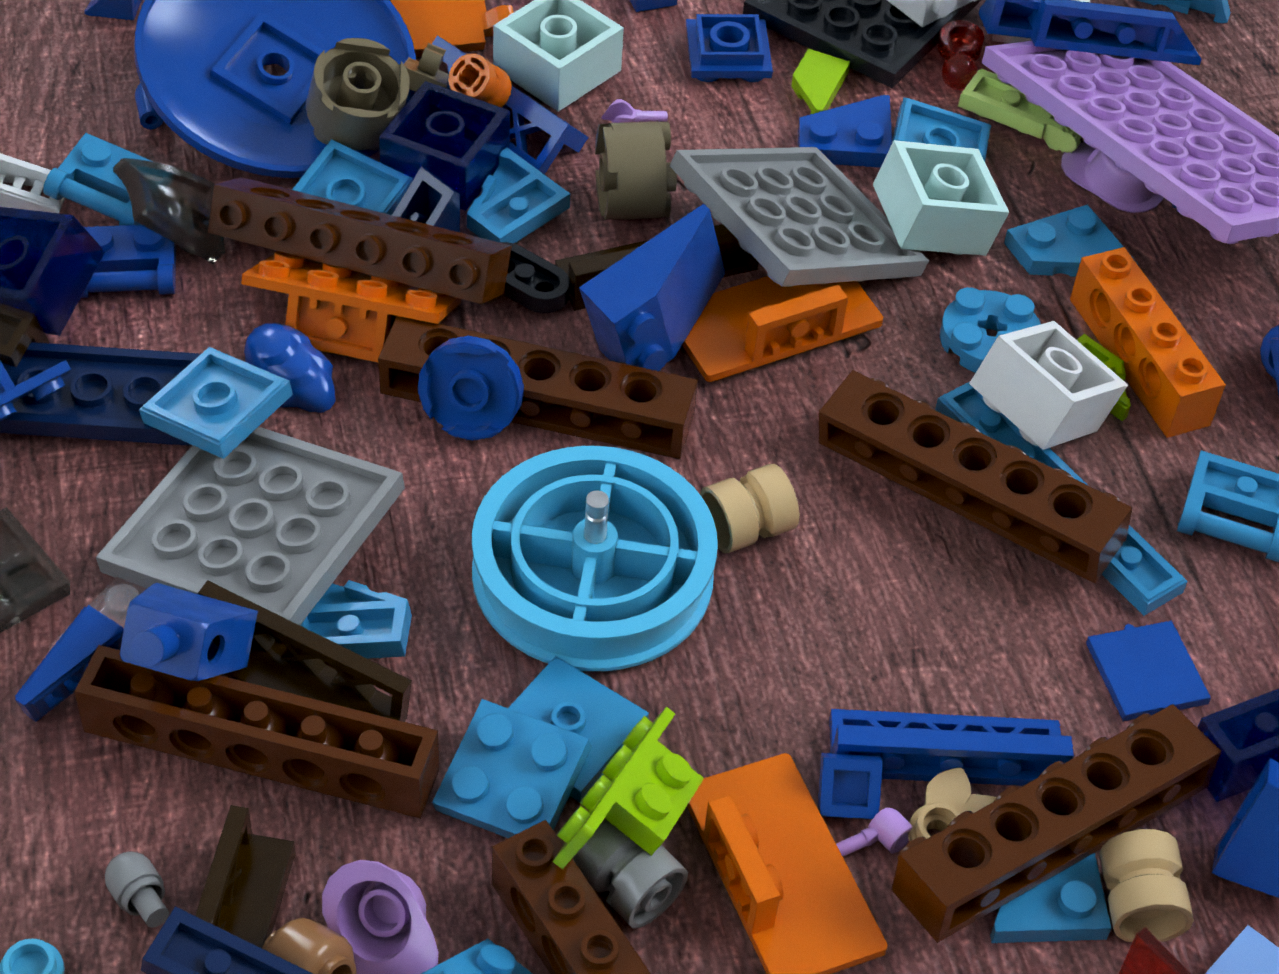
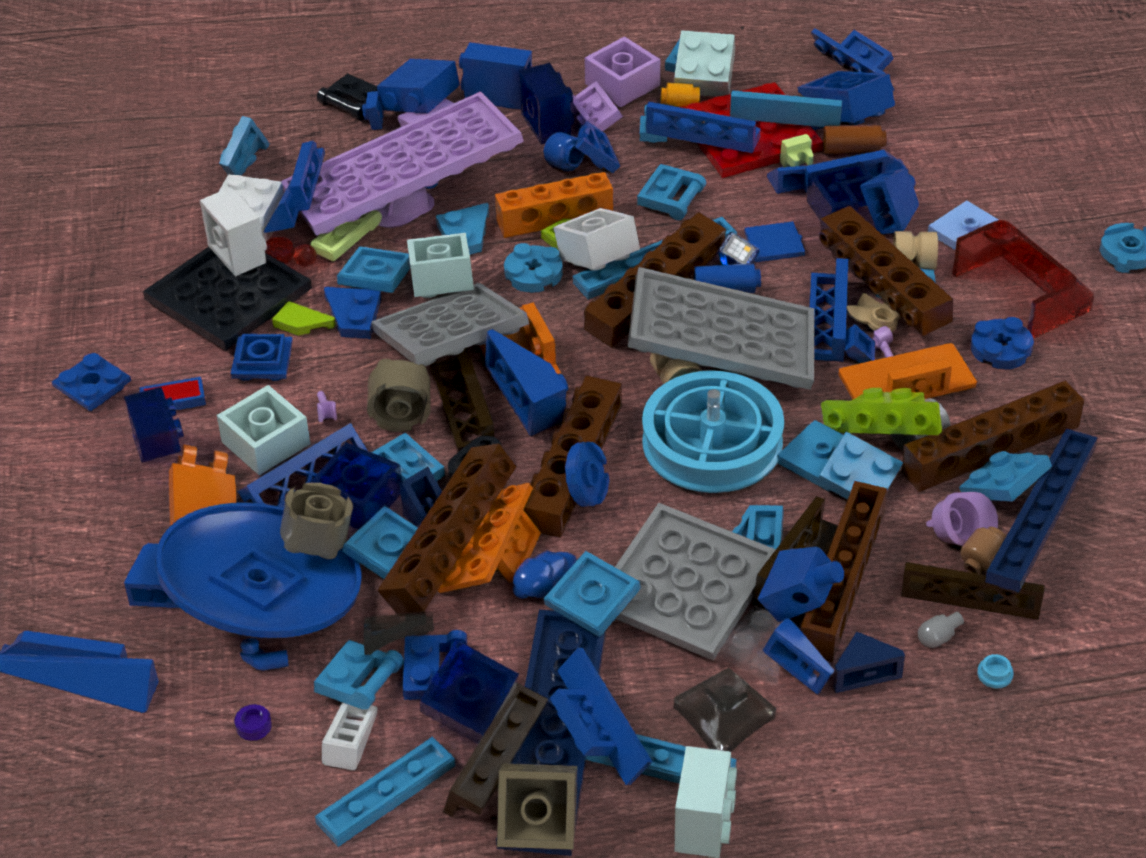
camera: 80 degrees left, 5 degrees down
(48, 101) = (253, 722): none -> dark purple tile
(67, 765) = (867, 663): none -> dark blue slope
(427, 68) = (281, 488): dark tan tile -> none
(480, 79) = (301, 463): orange wheel -> none
(830, 557) = (723, 328): none -> light grey plate
(1001, 581) = (736, 276): none -> blue brick
(1085, 600) = (737, 250): none -> slope

